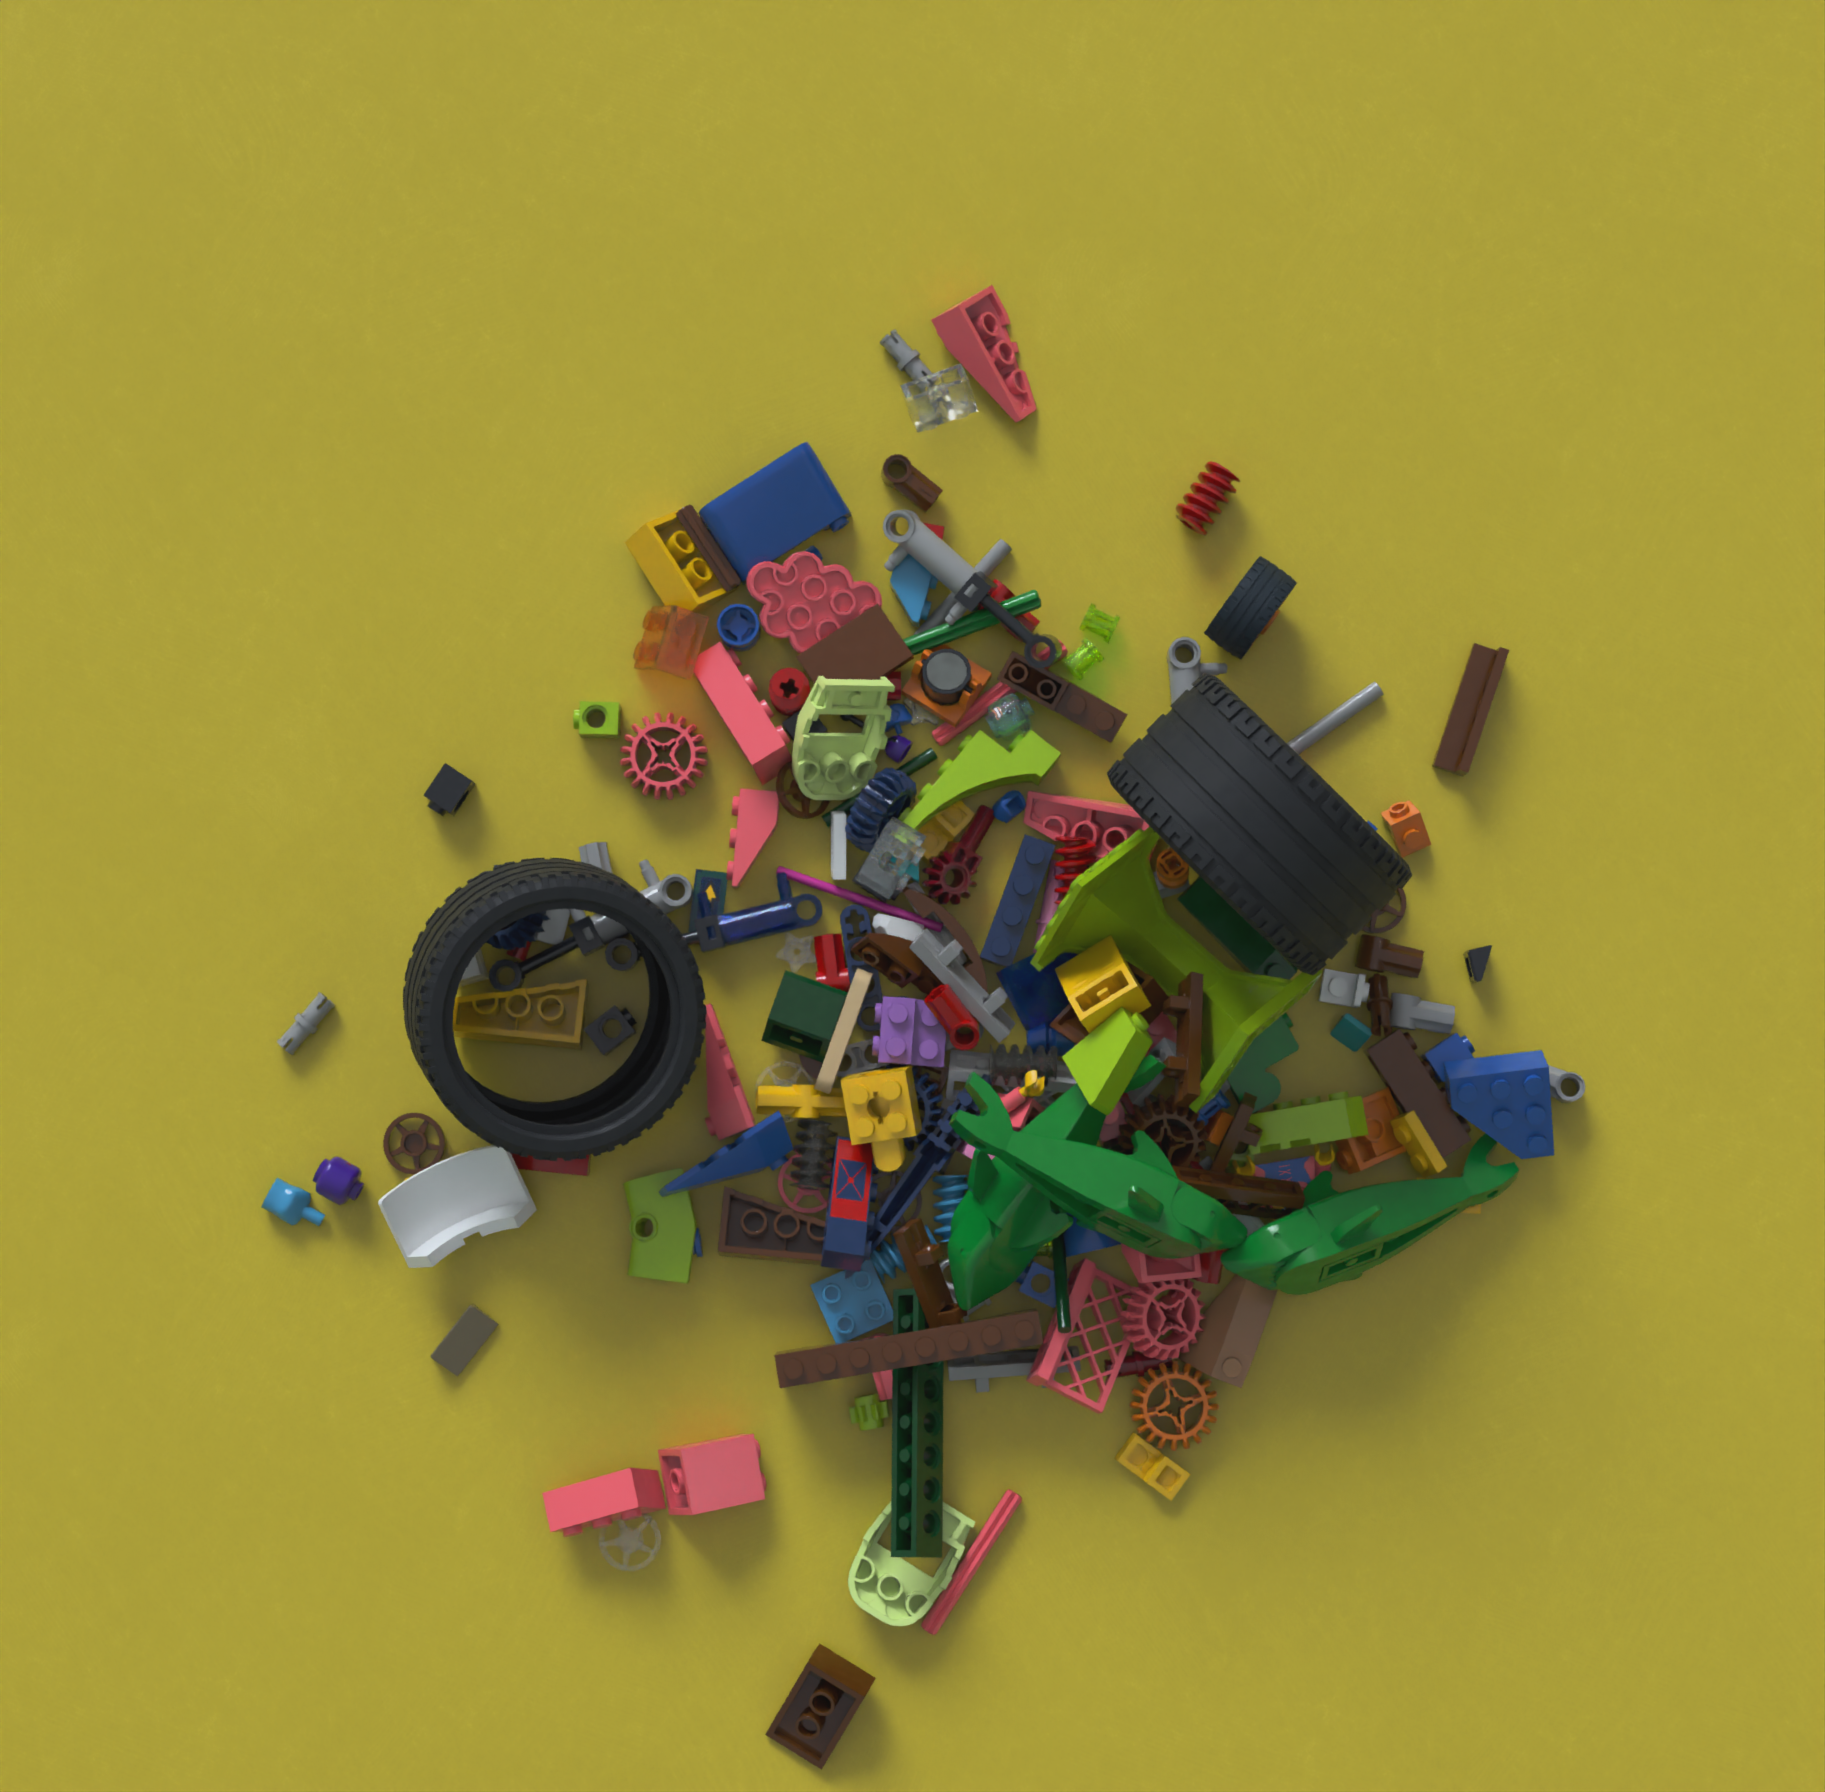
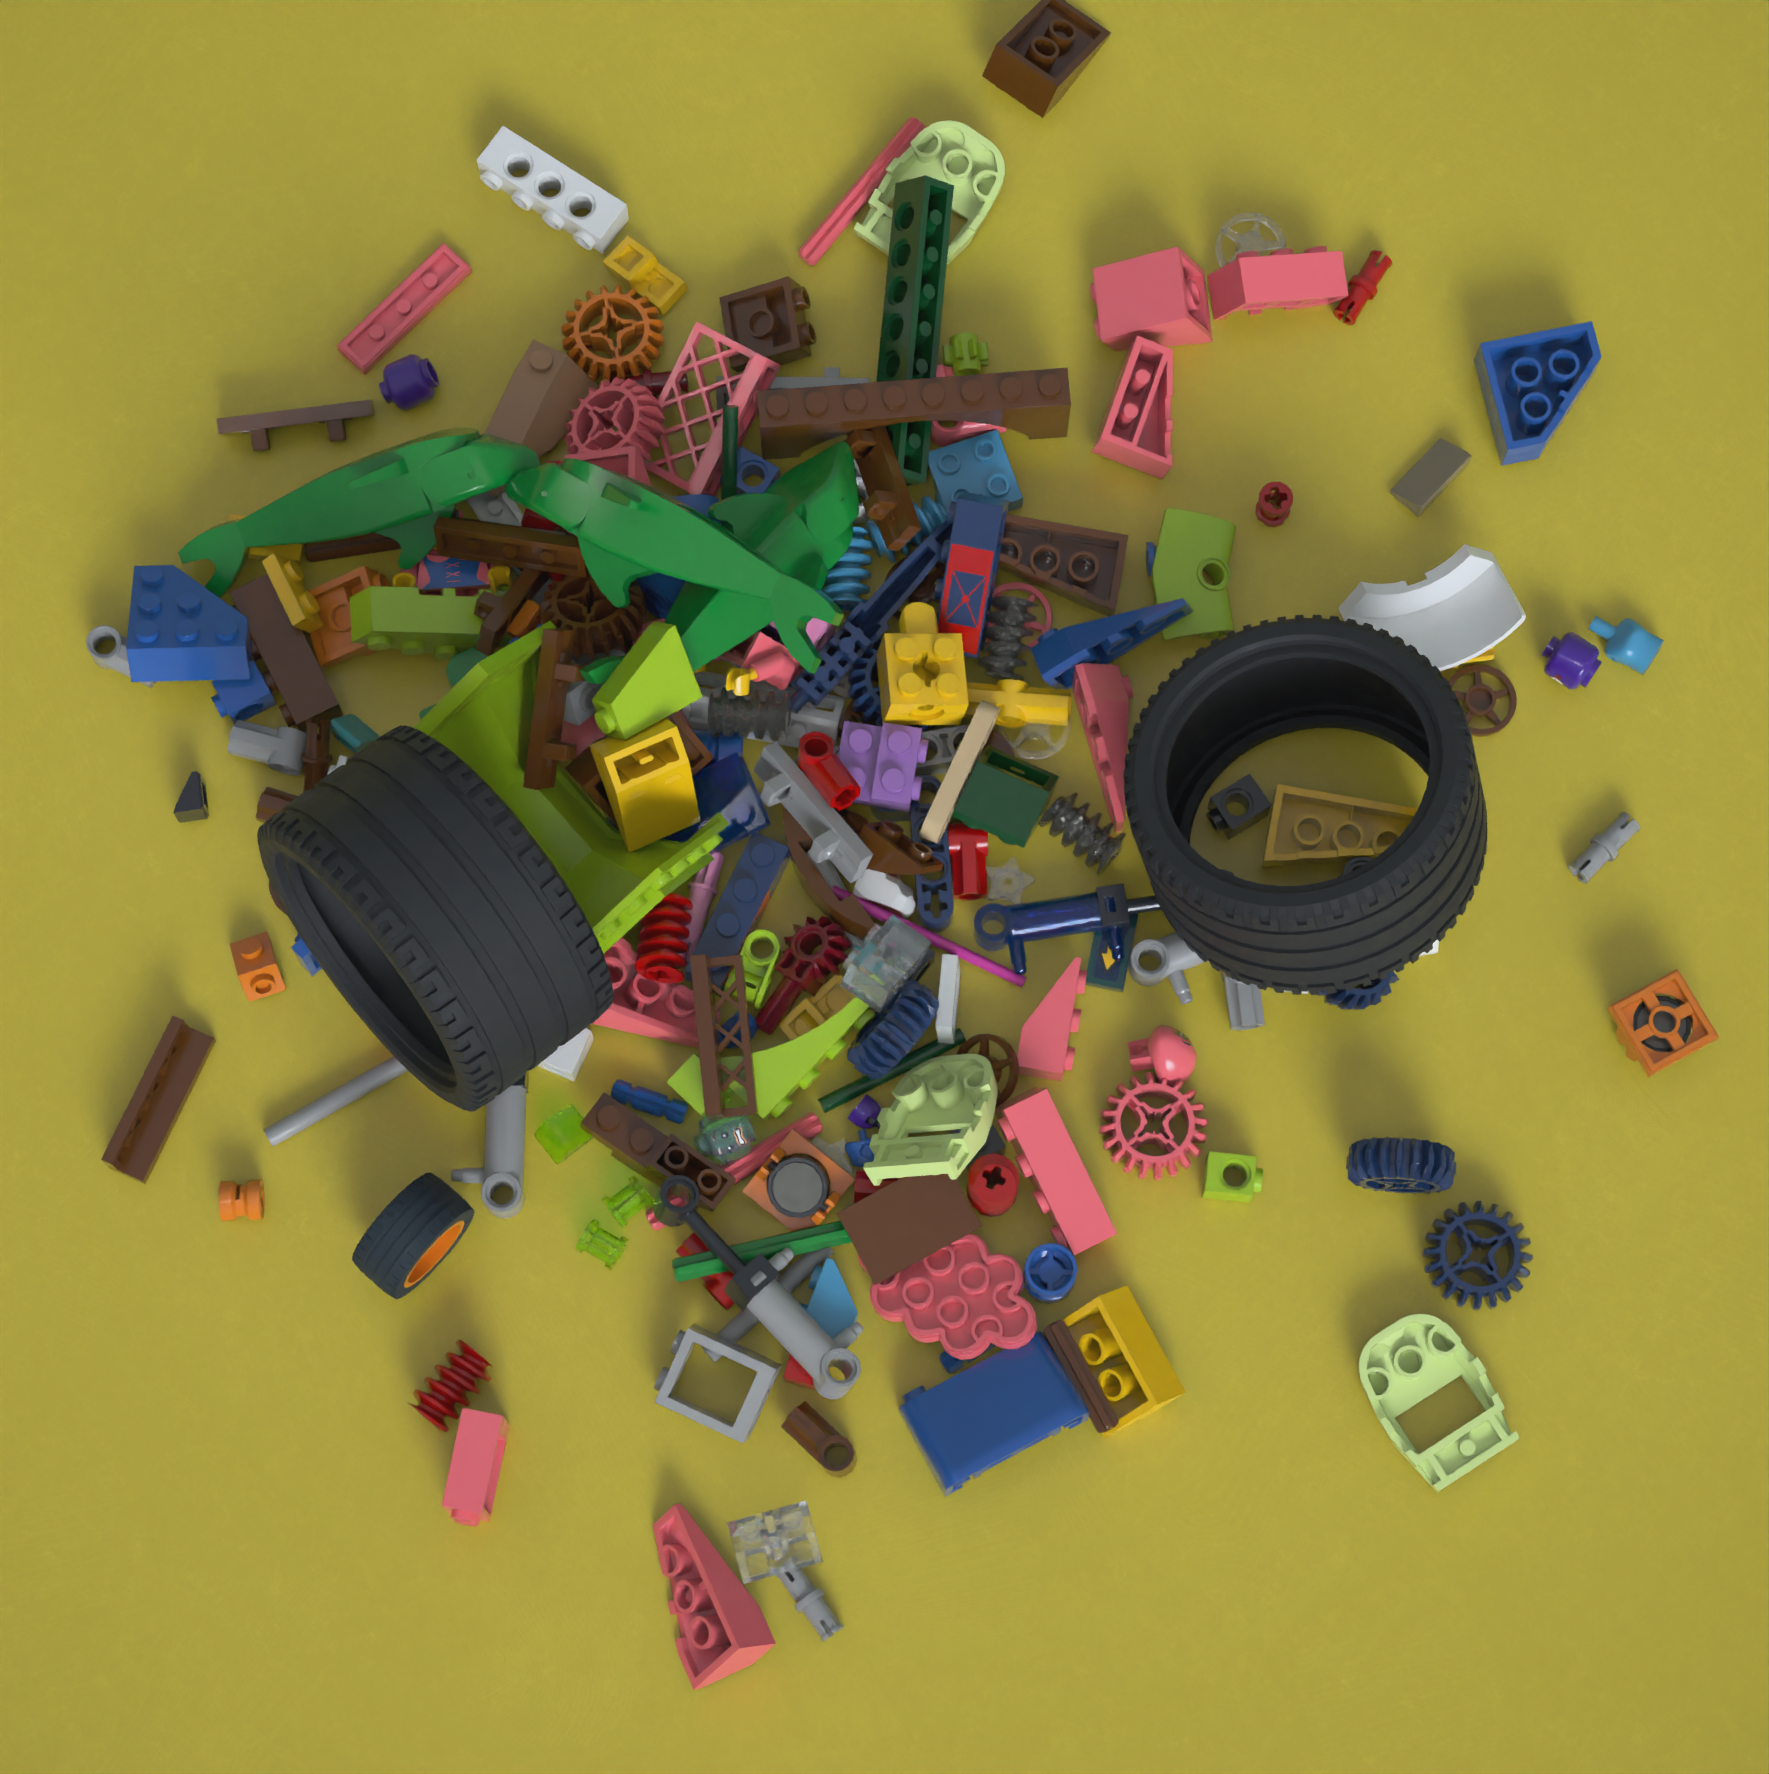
camera: 175 degrees left, 10 degrees down
(253, 871) = (1660, 1025): none -> orange piece
(378, 1423) = (1533, 384): none -> blue brick
(385, 682) = (1467, 1240): none -> dark blue gear
(448, 791) = (1419, 1106): black brick -> none
(449, 580) = (1411, 1364): none -> yellowish green slope
(461, 735) = (1401, 1165): none -> dark blue gear
(530, 1508) = (1362, 287): none -> red pin
(591, 1309) = (1264, 509): none -> red bush
(656, 816) = (1167, 1052): none -> coral piece
(670, 640) = (1137, 1259): clear orange bracket -> none
(716, 1373) = (1139, 411): none -> coral wedge
(737, 997) = (1083, 831): none -> clear smoke piece
(985, 540) = (766, 1374): none -> light grey window
(999, 856) = (757, 971): none -> lime piece
(1030, 788) = (709, 1040): none -> reddish brown fence
(1041, 1427) = (769, 322): none -> reddish brown plate
(1075, 744) = (649, 1101): none -> blue axle
(1141, 712) = (562, 1134): none -> clear neon green slope
(1180, 433) = (475, 1466): none -> coral window
(1281, 1568) = (511, 152): none -> white brick
(1343, 1347) = (409, 382): none -> dark purple head
(1356, 1418) = (404, 308): none -> coral tile
(1392, 633) = (241, 1200): none -> orange wheel
(1464, 1300) = (259, 423): none -> reddish brown hinge

